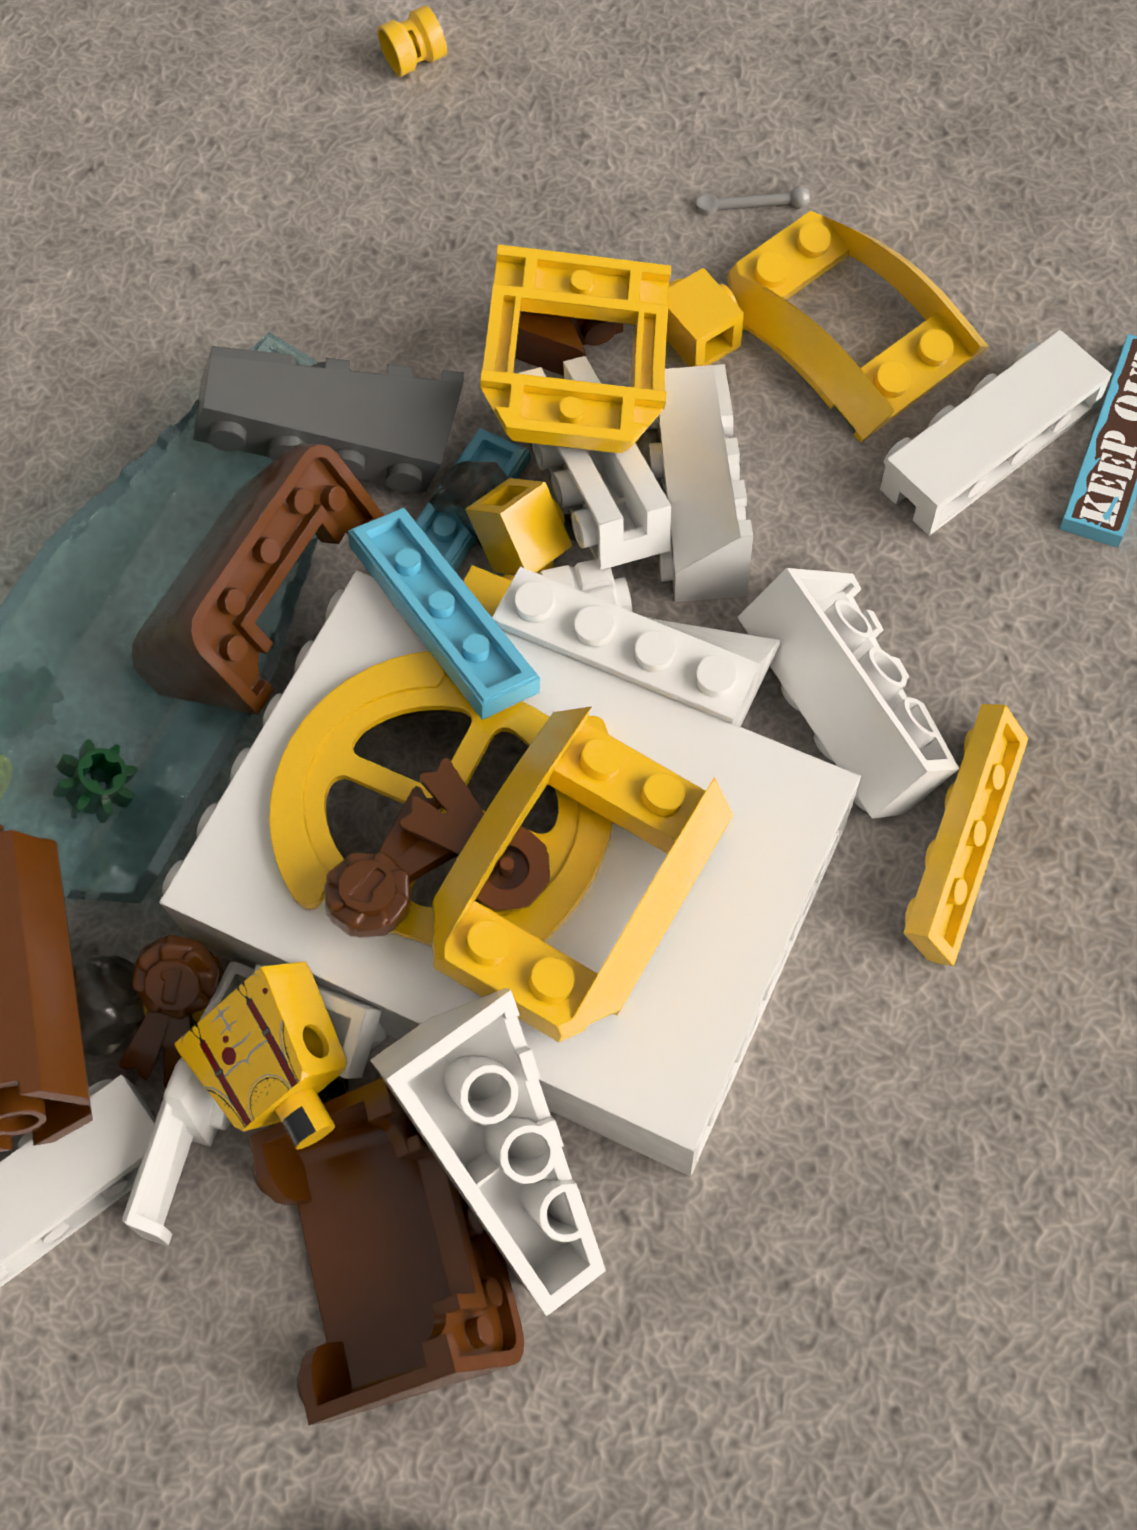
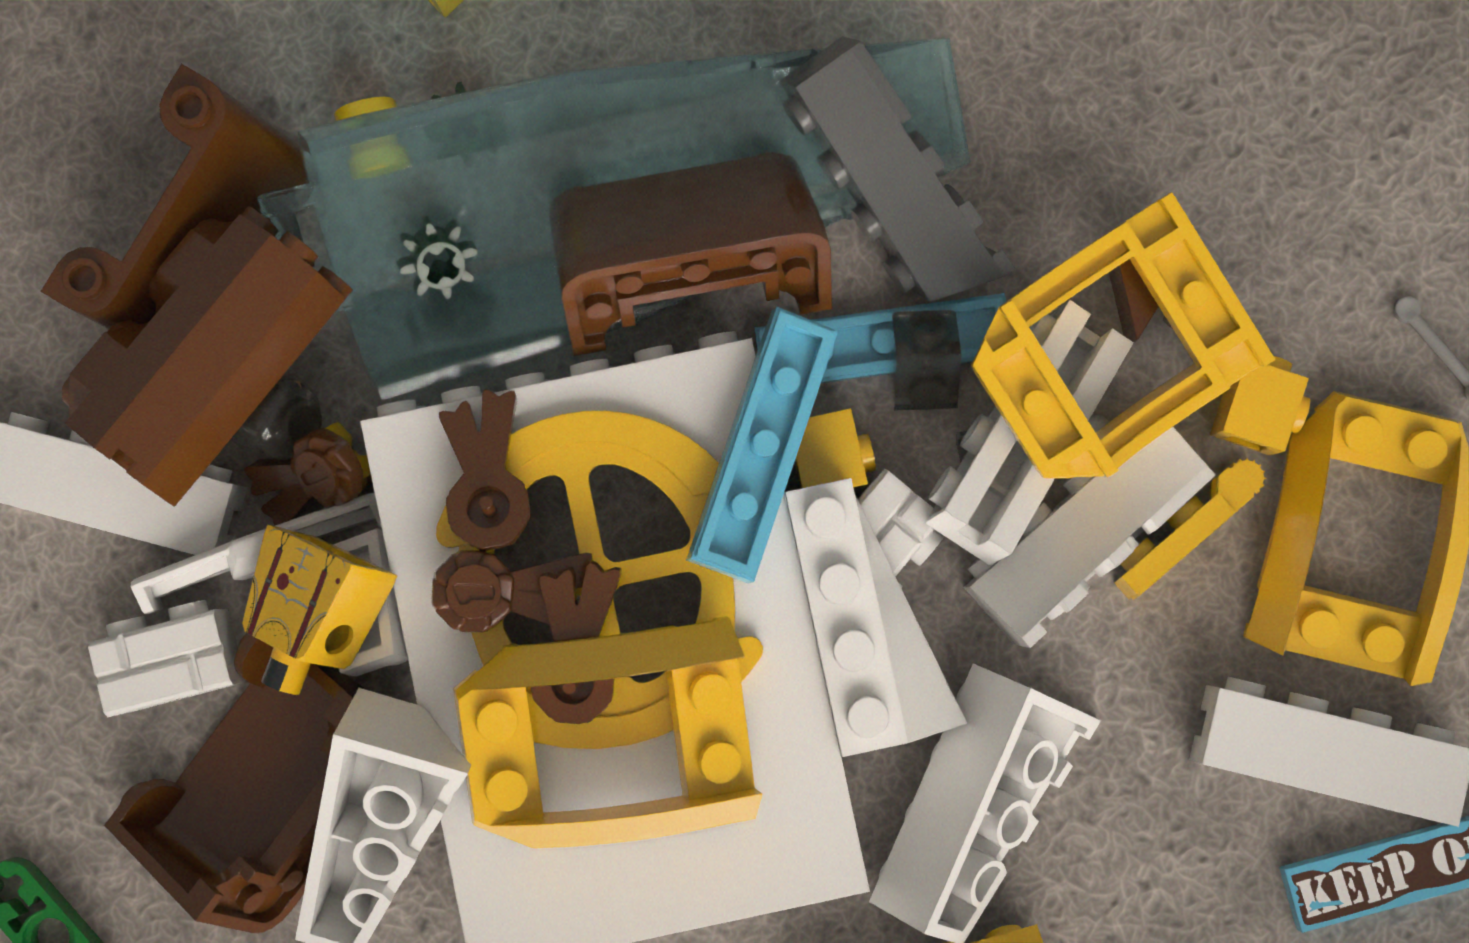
camera: 55 degrees right, 20 degrees up
(215, 1260) = (166, 660): none -> white brick
(304, 834) = (487, 503): none -> reddish brown piece
(519, 526) = (916, 421): yellow brick -> none
(751, 415) = (1191, 527): none -> yellow hinge

